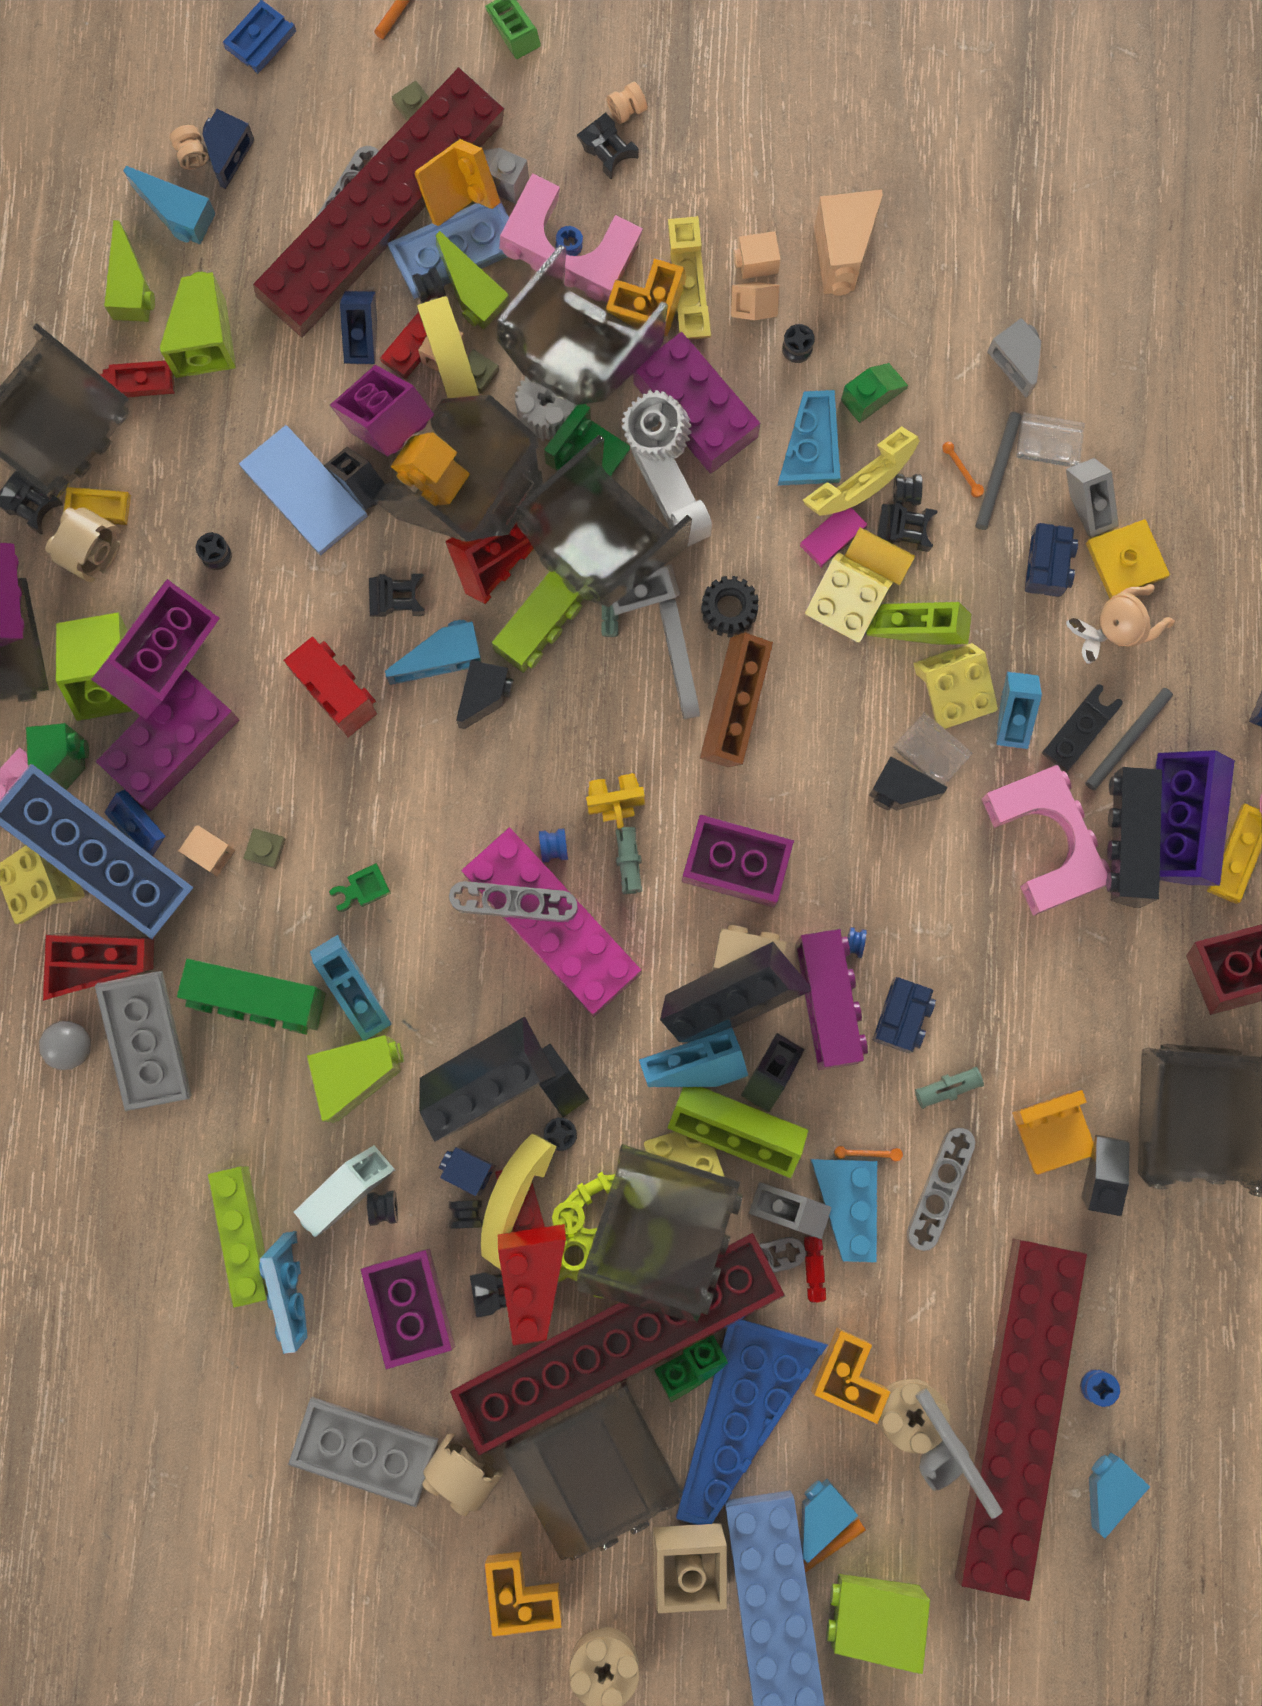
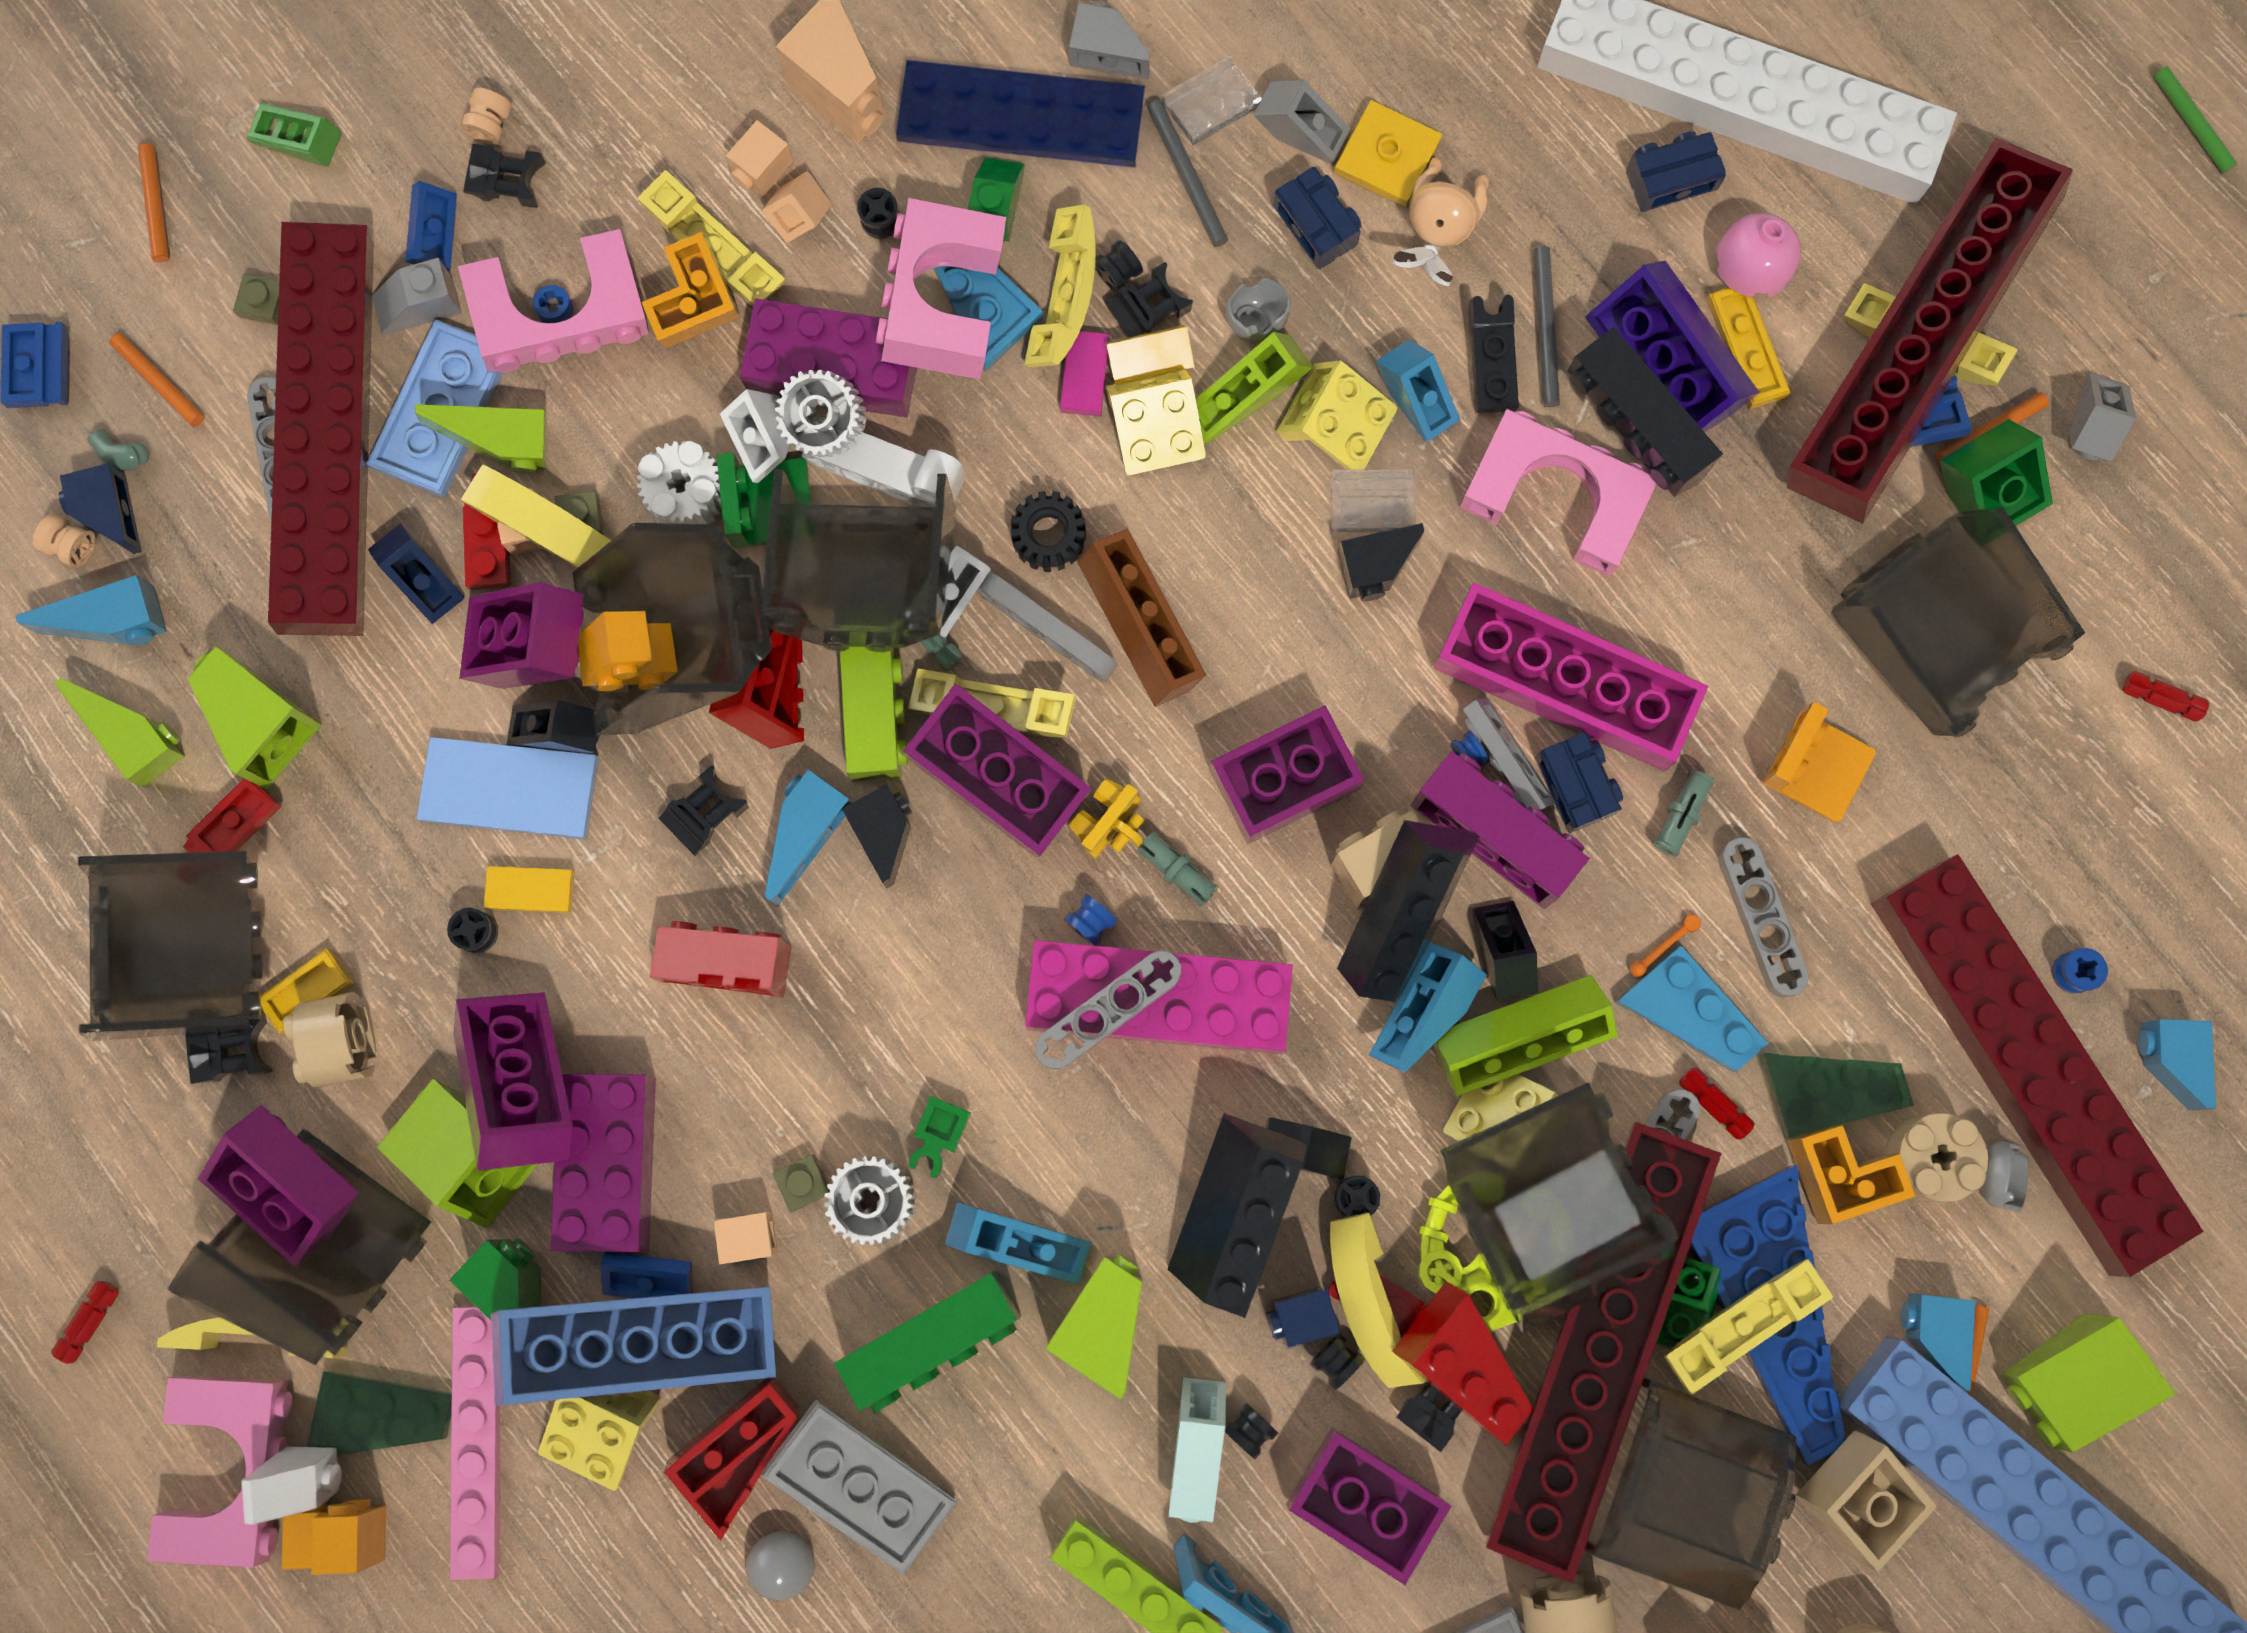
camera: 40 degrees left, 0 degrees up
(259, 125) = (118, 455): none -> sand green arm
(264, 555) = (529, 889): none -> yellow tile
(281, 876) = (846, 1194): none -> white brick
(317, 100) = (156, 379): none -> orange bar
(428, 285) = (451, 470): black wheel -> none
(456, 180) = (383, 337): light orange bracket -> none
(541, 139) = (430, 224): none -> blue plate
(571, 342) = (659, 401): clear smoke windscreen -> none
(574, 713) = (996, 770): none -> magenta brick
(608, 676) = (1027, 711): none -> light yellow slope
(609, 413) = (754, 432): none -> white slope
(712, 1406) = (1746, 1324): none -> light yellow slope
(790, 1210) = (1644, 1068): light grey slope -> none
(809, 380) = (915, 331): none -> bright pink arch
(876, 964) = (1507, 755): none -> light grey plate
(888, 1323) = (1832, 1092): none -> clear green wing
(933, 355) = (1020, 113): none -> clear blue plate
(953, 950) = (1571, 677): none -> dark pink brick
(959, 1453) = (2016, 1153): light grey bar -> none
(965, 583) = (1258, 310): none -> light grey hair
(977, 489) = (1183, 209): orange hinge -> none
(1107, 1176) = (1907, 763): black slope -> none

